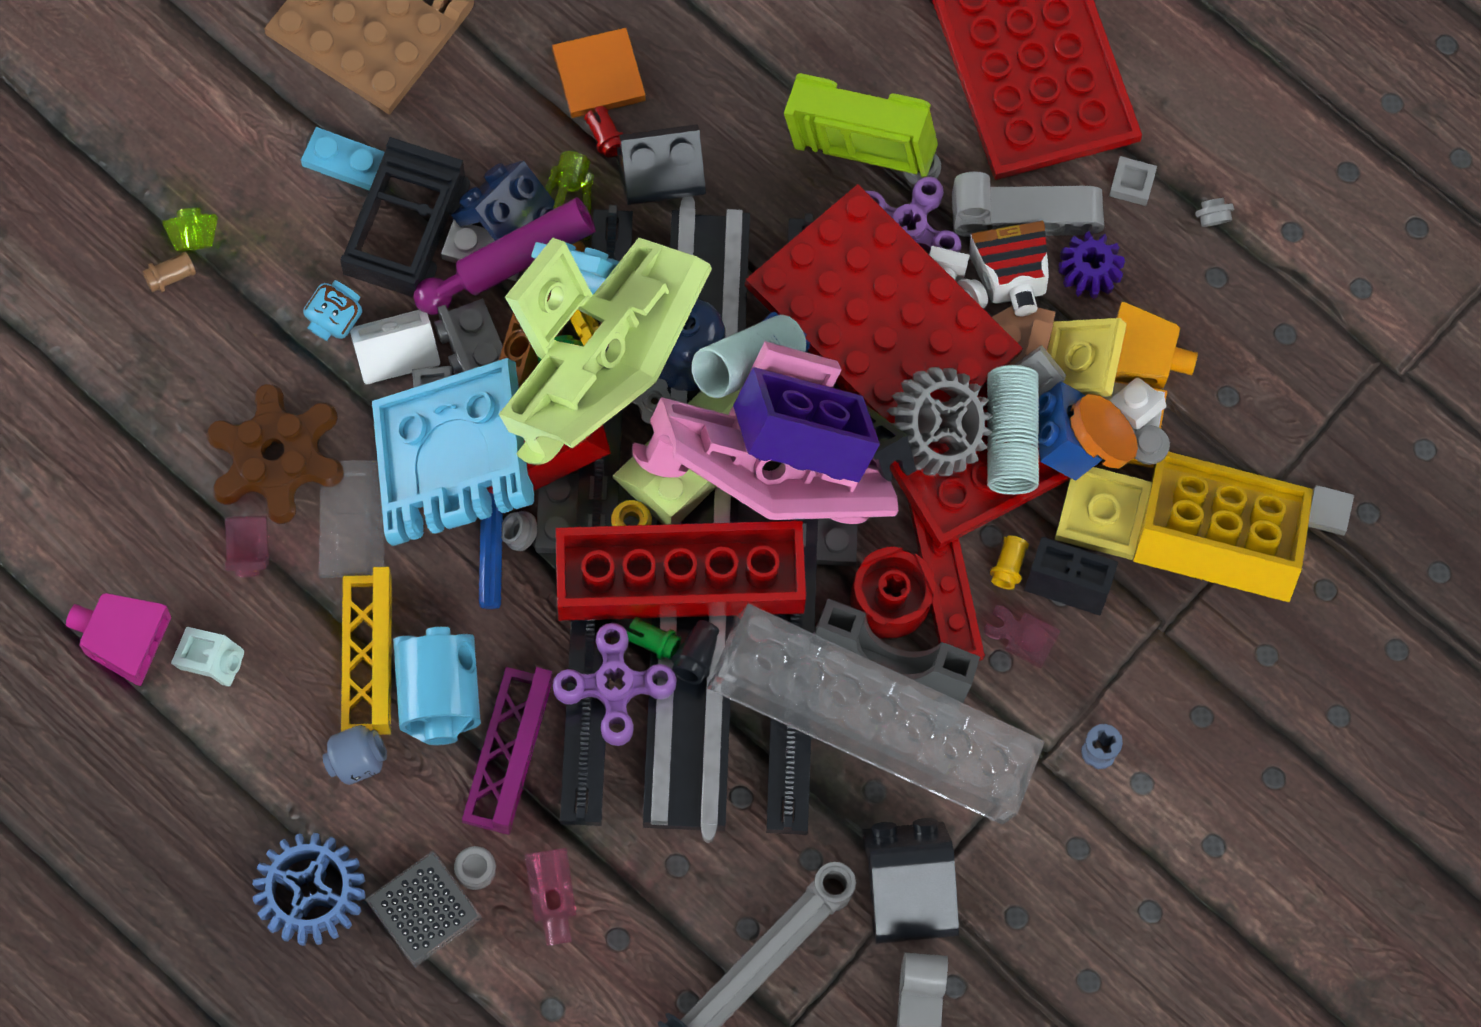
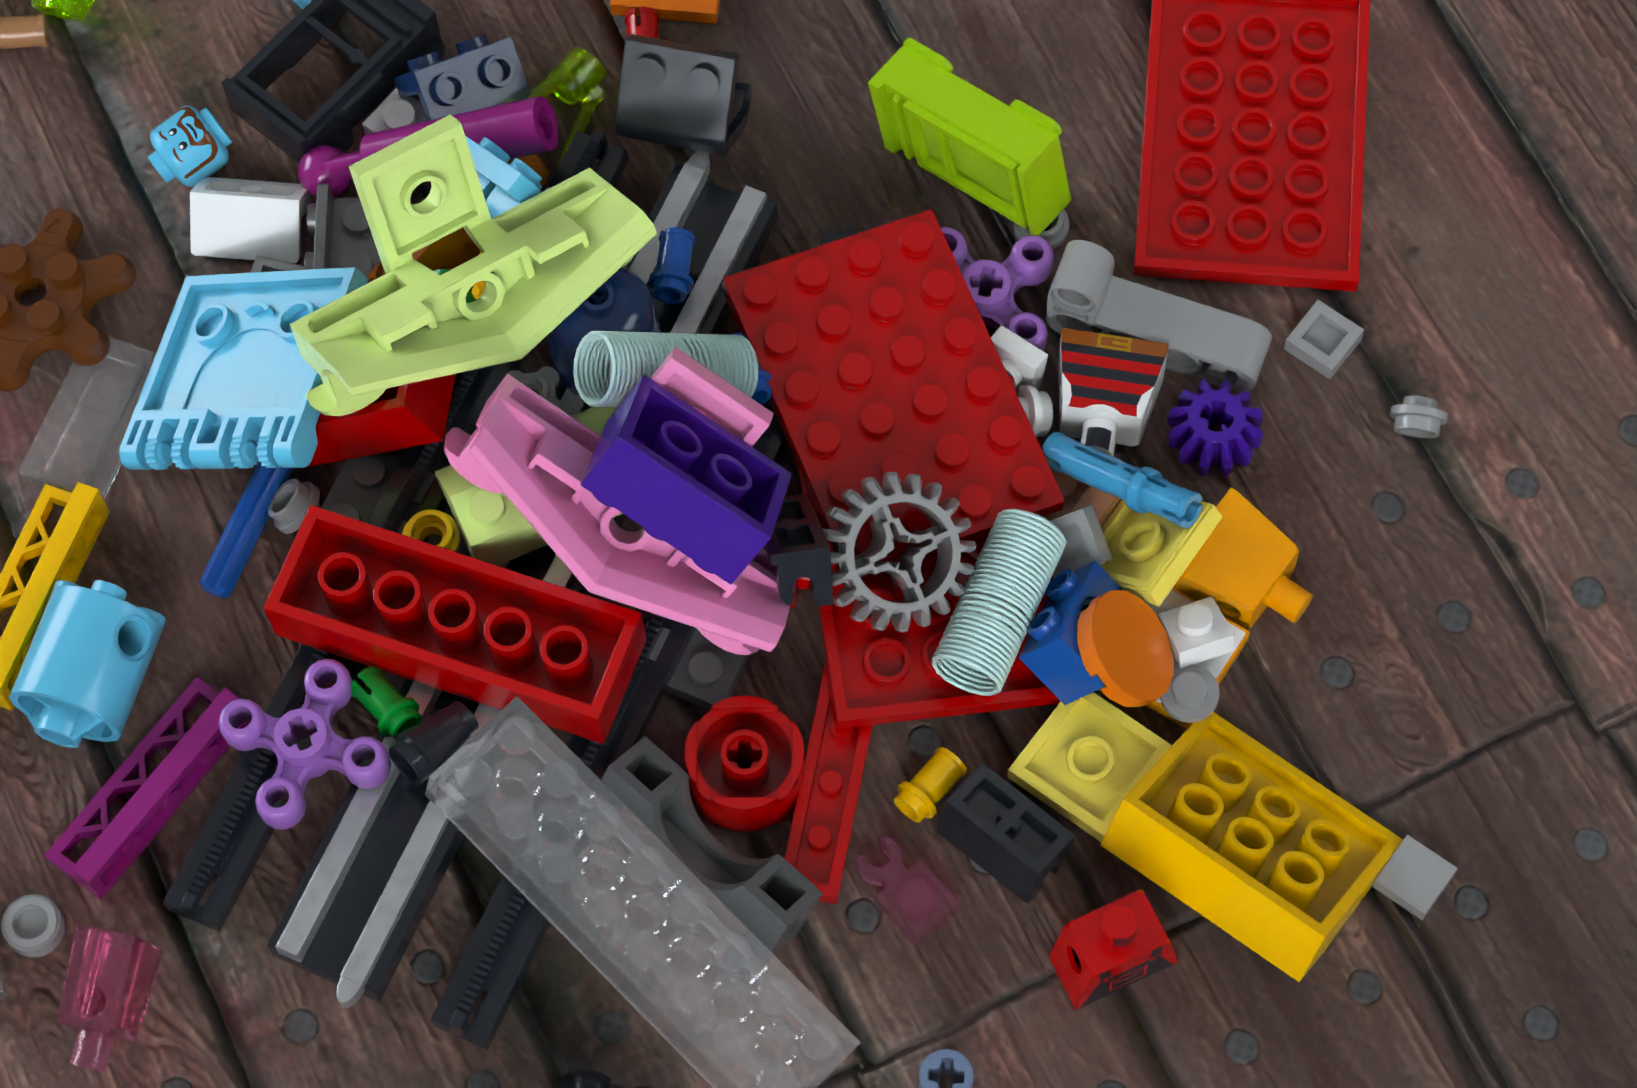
camera: 30 degrees right, 5 degrees down
(712, 290) = (672, 278): none -> blue pin
(1066, 323) = (1139, 487): none -> dark azure pin
(1171, 623) = (1114, 949): none -> red torso

